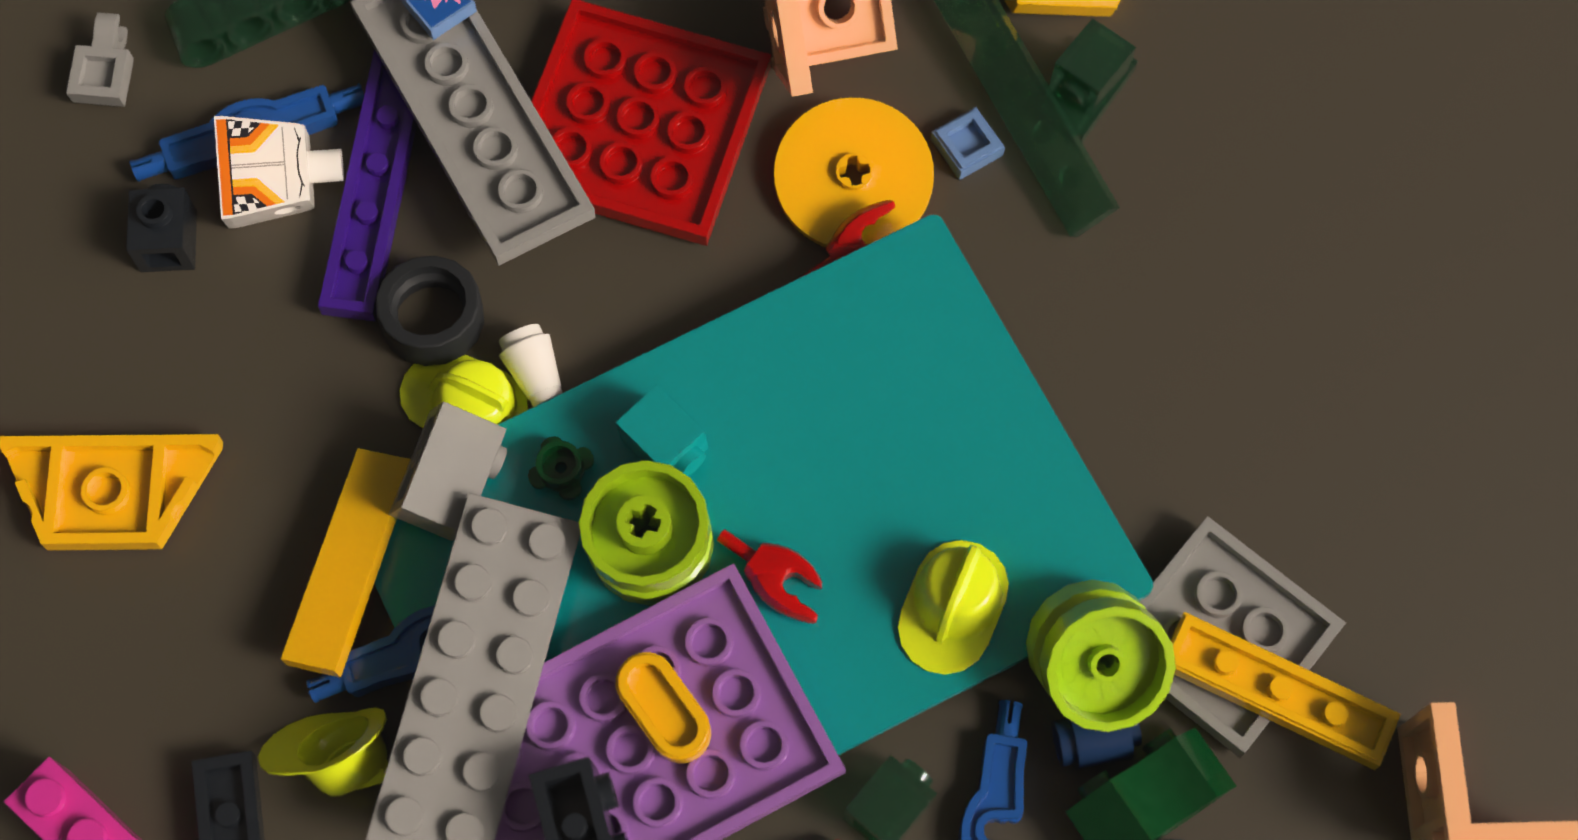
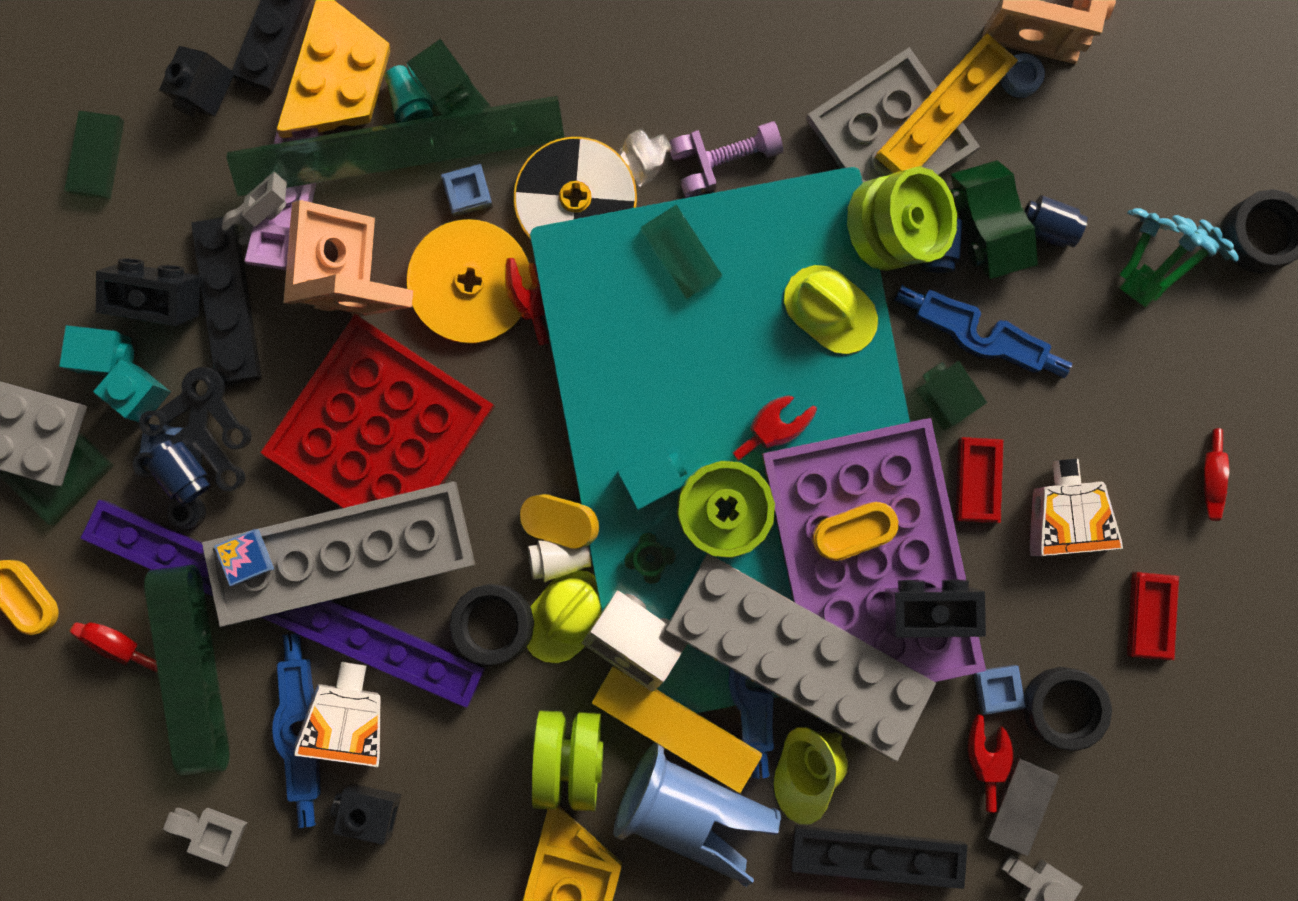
camera: 70 degrees left, 15 degrees up
(244, 581) = (679, 811): none -> medium blue piece
(276, 431) = (567, 760): none -> lime wheel
(580, 352) = (559, 521): none -> yellow tile
(965, 396) = (681, 252): none -> clear green tile
(1037, 248) = (566, 166): none -> piece
(1052, 40) = (406, 96): none -> teal cone
(1082, 333) = (644, 155): none -> clear tile
(1154, 476) = (765, 141): none -> lavender bar
(1368, 794) = (1024, 76): none -> medium blue tile

